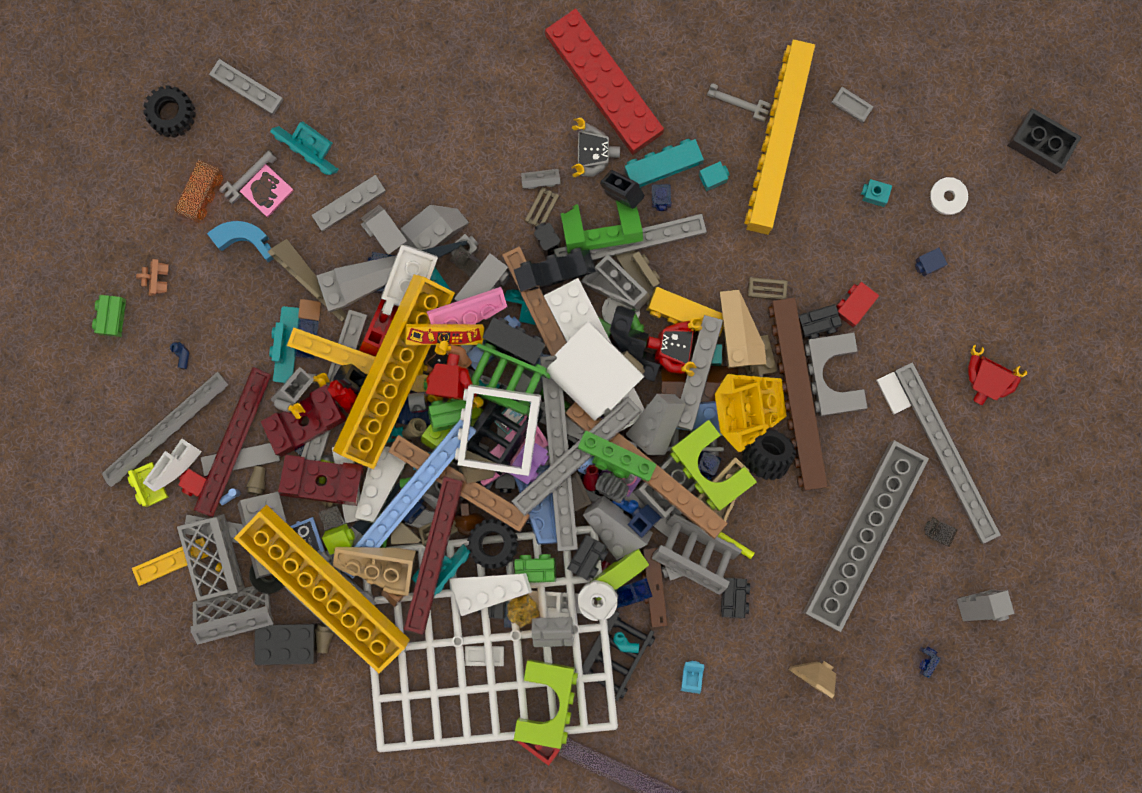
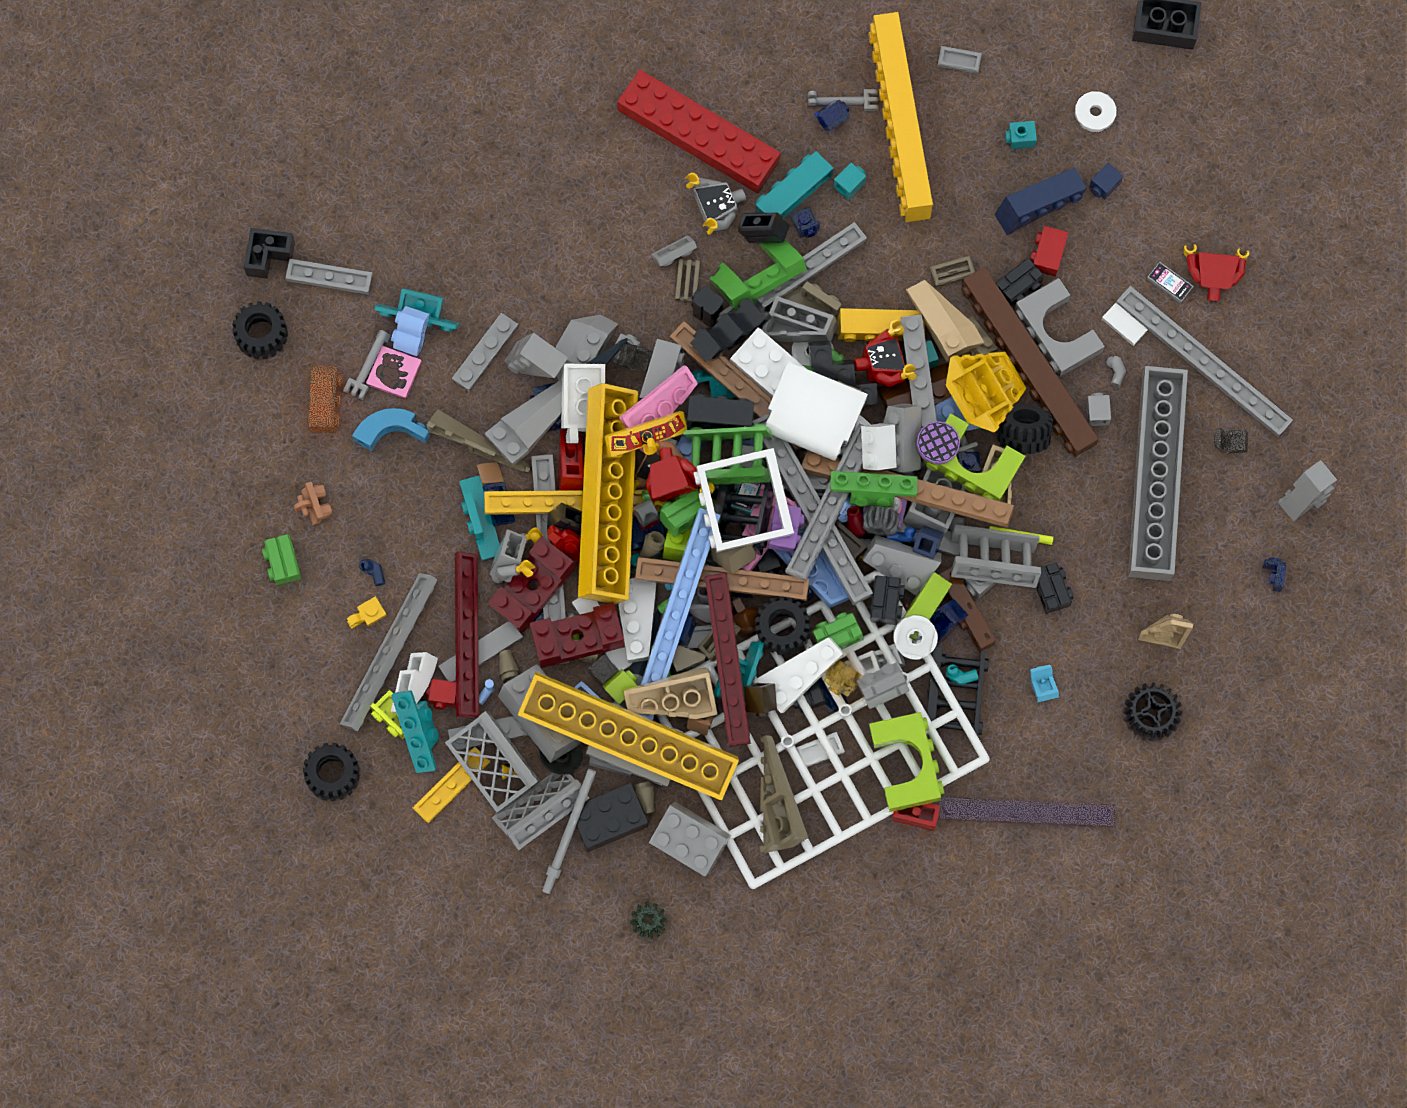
camera: 25 degrees left, 10 degrees down
(91, 517) = (344, 784): none -> black tyre
(159, 507) = (417, 729): none -> teal bracket
(163, 388) = (369, 612): none -> yellow plate
(200, 41) = (263, 247): none -> black brick
(224, 668) = (554, 870): none -> light grey bar
(279, 749) = (647, 928): none -> clear green gear
(291, 161) = (410, 330): none -> light blue brick
(343, 690) = (690, 838): none -> light grey brick
(425, 704) = (781, 817): none -> dark tan wedge
(448, 598) = (760, 698): none -> dark brown brick
(634, 425) = (878, 446): none -> white brick
(686, 442) = (938, 443): none -> tile
(723, 112) = (832, 114): none -> clear blue brick
(772, 747) = (1144, 714): none -> black gear
(839, 459) = (1098, 409): none -> light grey brick
(868, 257) = (1039, 200): none -> dark blue wedge
(872, 430) = (1118, 368): none -> light grey arm
(947, 372) = (1170, 282): none -> tile

